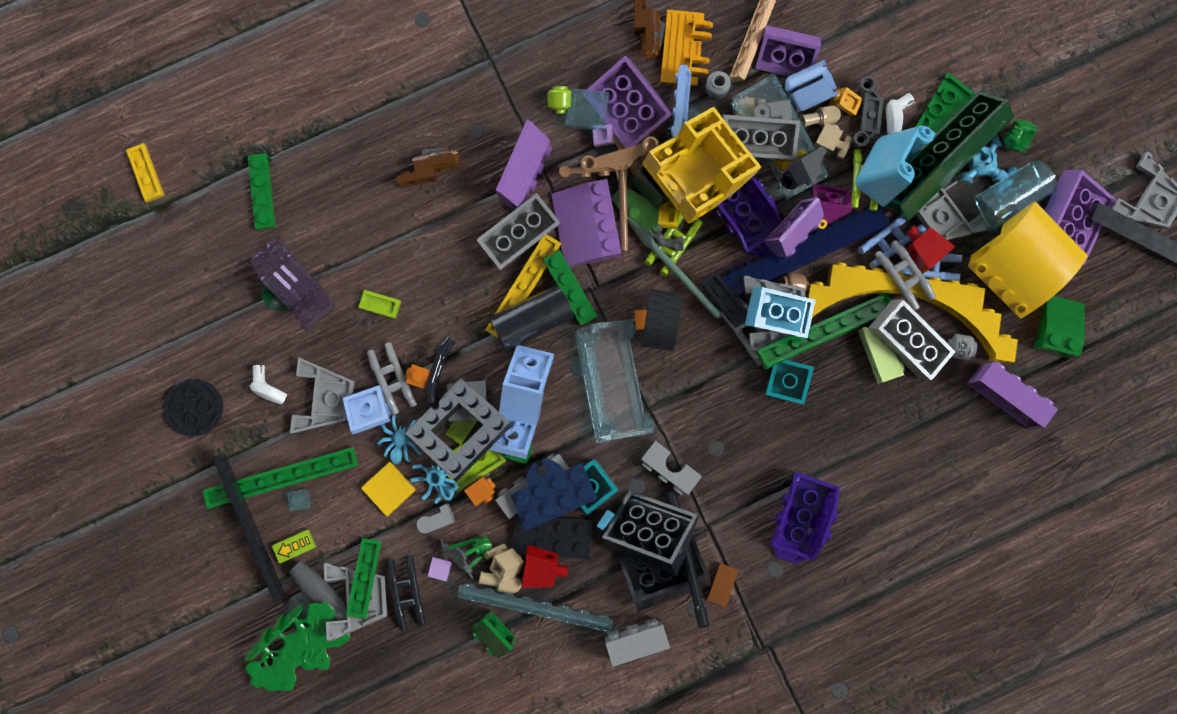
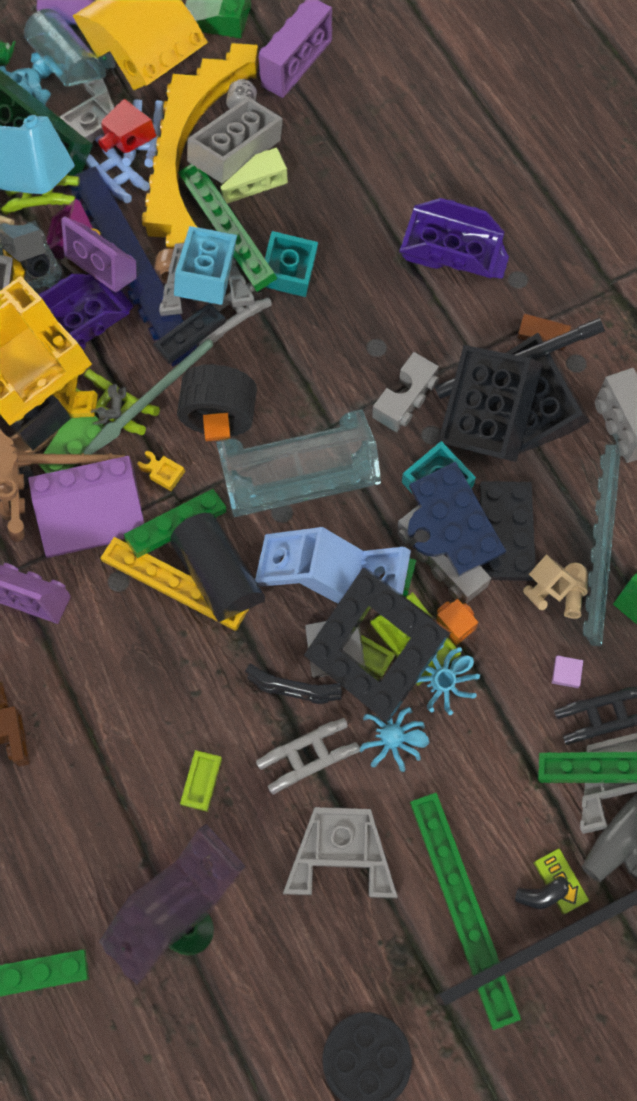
camera: 90 degrees left, 15 degrees down
(263, 389) = (334, 944): white arm -> none
(283, 534) = (545, 896): none -> black arm
(299, 500) = (493, 879): clear light blue plate -> none
(366, 409) = (356, 780): light blue bracket -> none
(388, 489) = (464, 749): yellow tile -> none
(417, 376) = (304, 713): orange brick -> none
(430, 523) = (502, 677): light grey leg -> none
(479, 547) = (552, 632): plant -> none
(518, 231) = (100, 590): light grey brick -> none
(541, 568) = (552, 536): red torso -> none
(606, 520) = (480, 462): medium azure tile -> none
(612, 279) = (162, 472): none -> yellow plate
(904, 286) = (151, 158): light grey piece -> none

